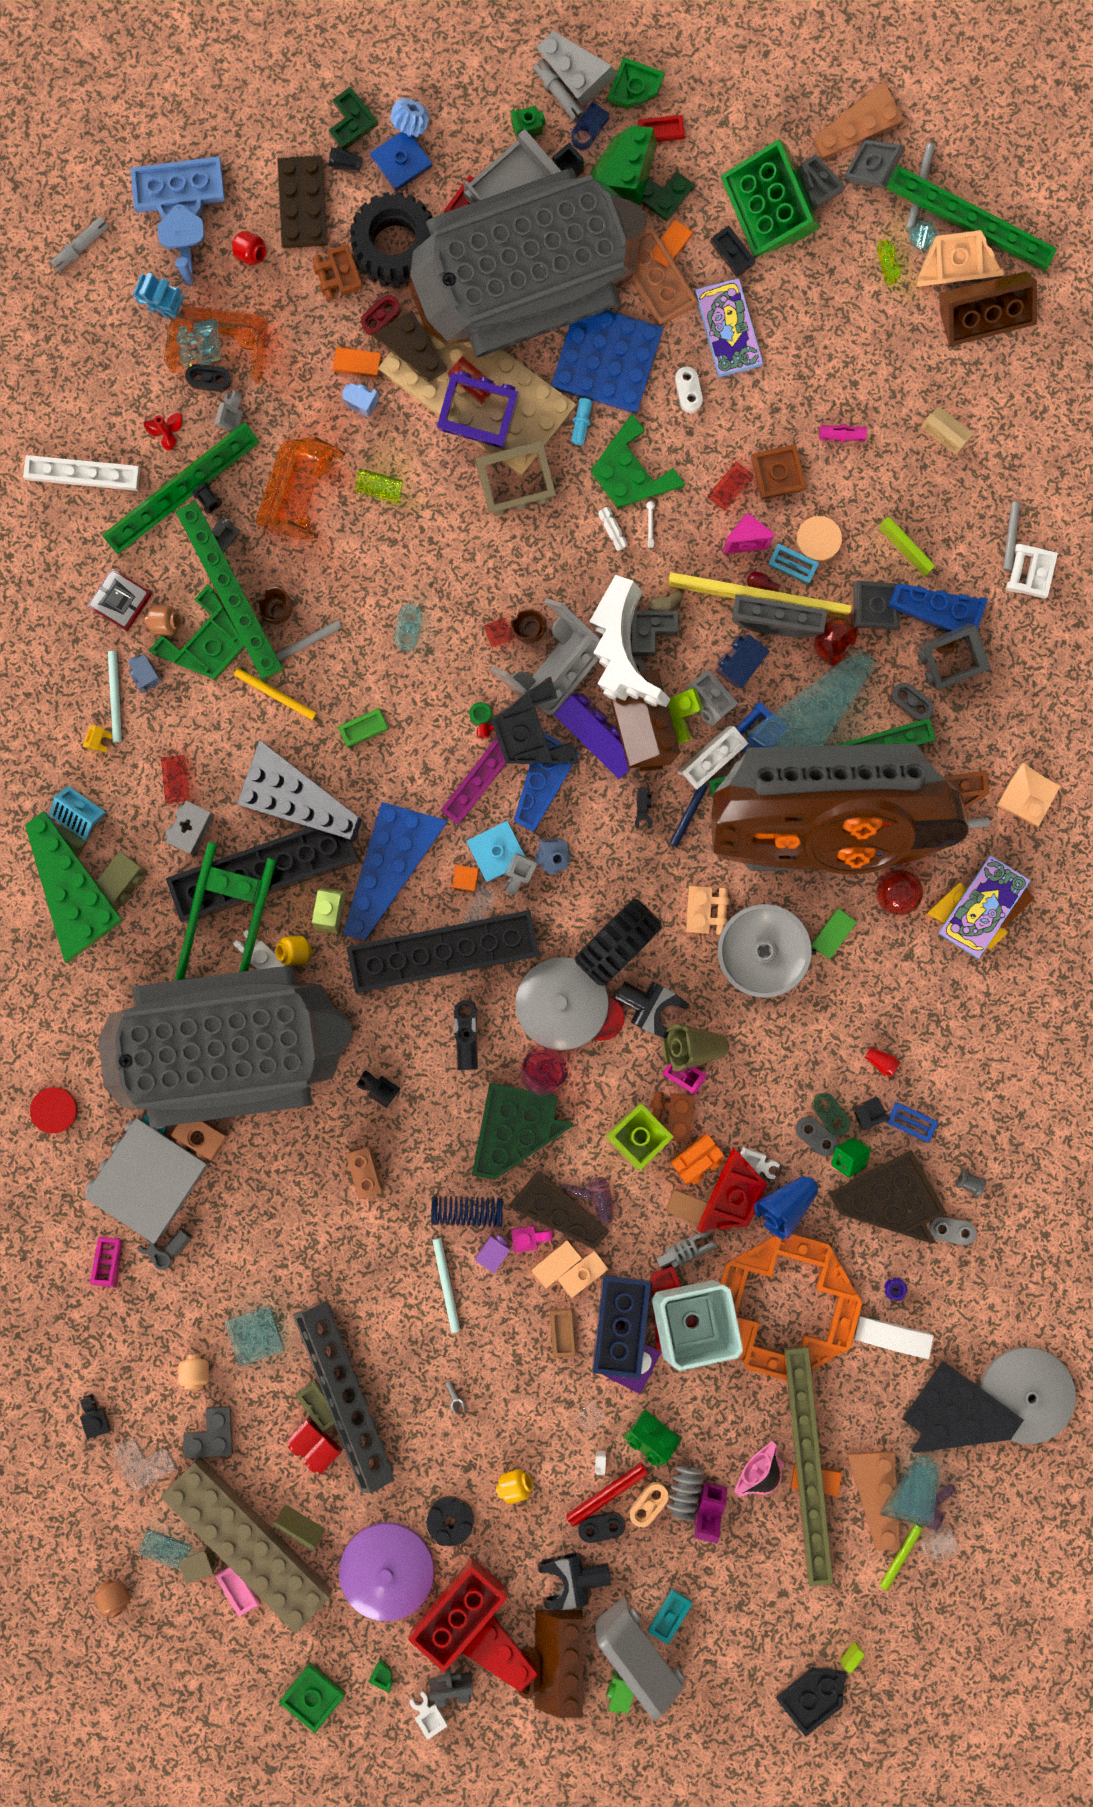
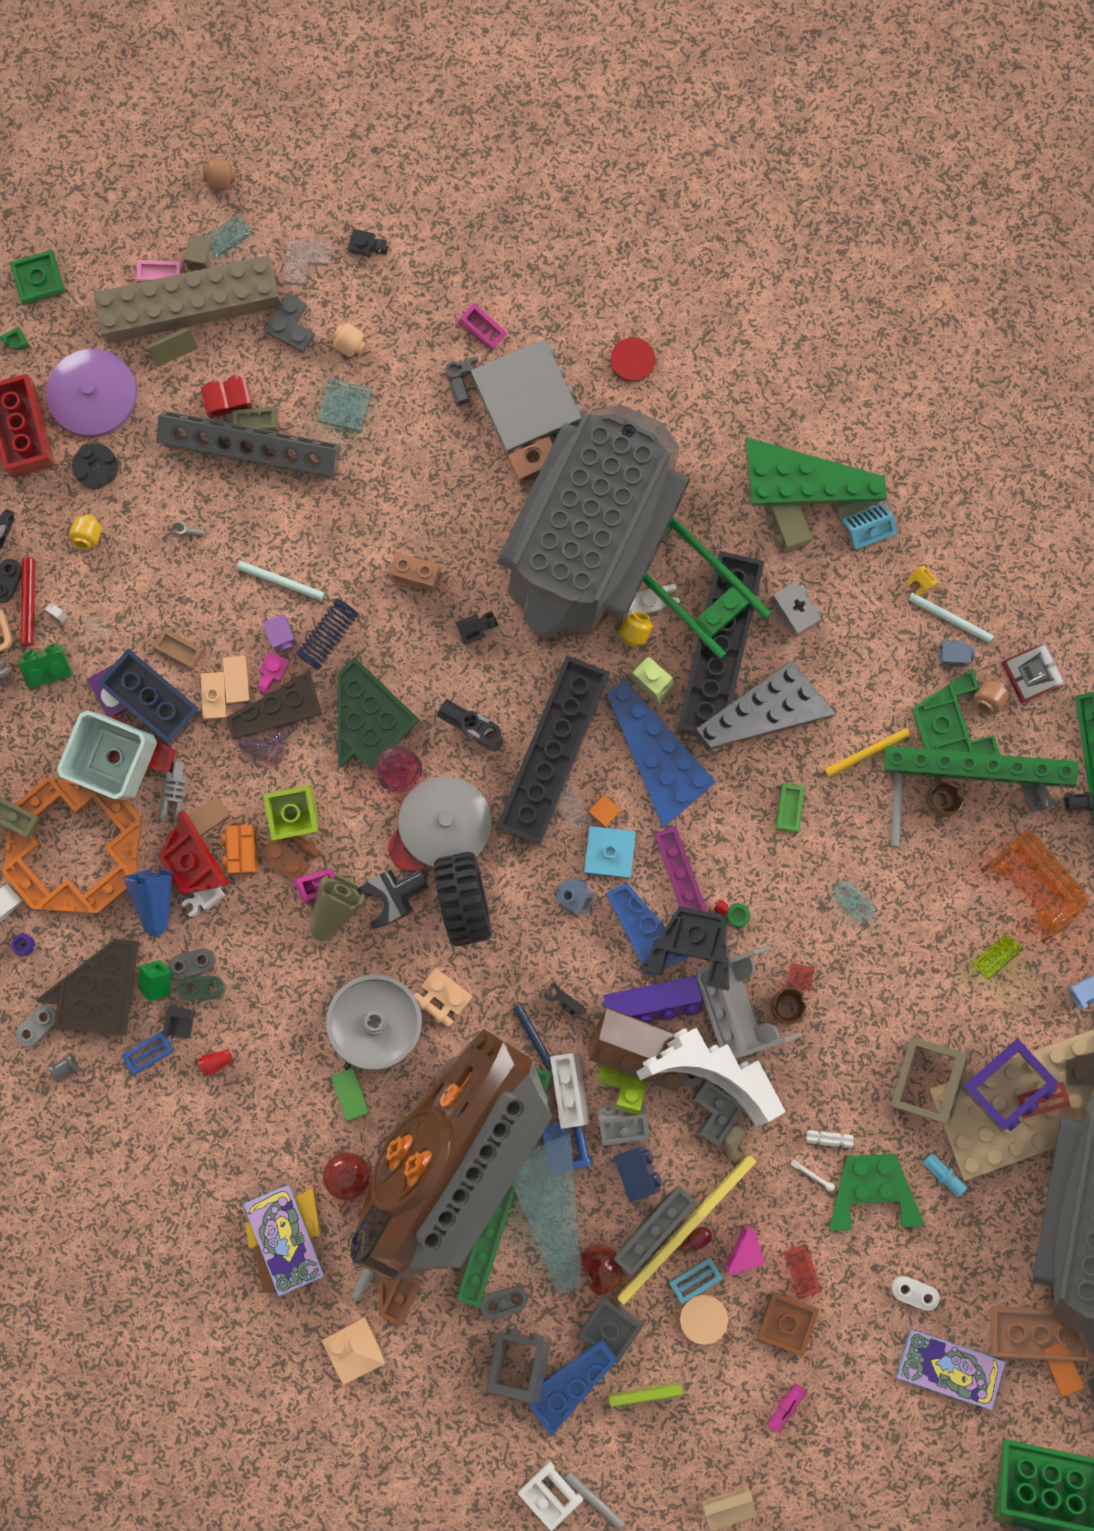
camera: 125 degrees right, 5 degrees down
(175, 779) = (846, 623): clear red tile -> none
(519, 870) = (580, 858): light grey plate -> none
(608, 359) = (988, 1238): blue plate -> none
(732, 251) = (1020, 1421): black plate -> none

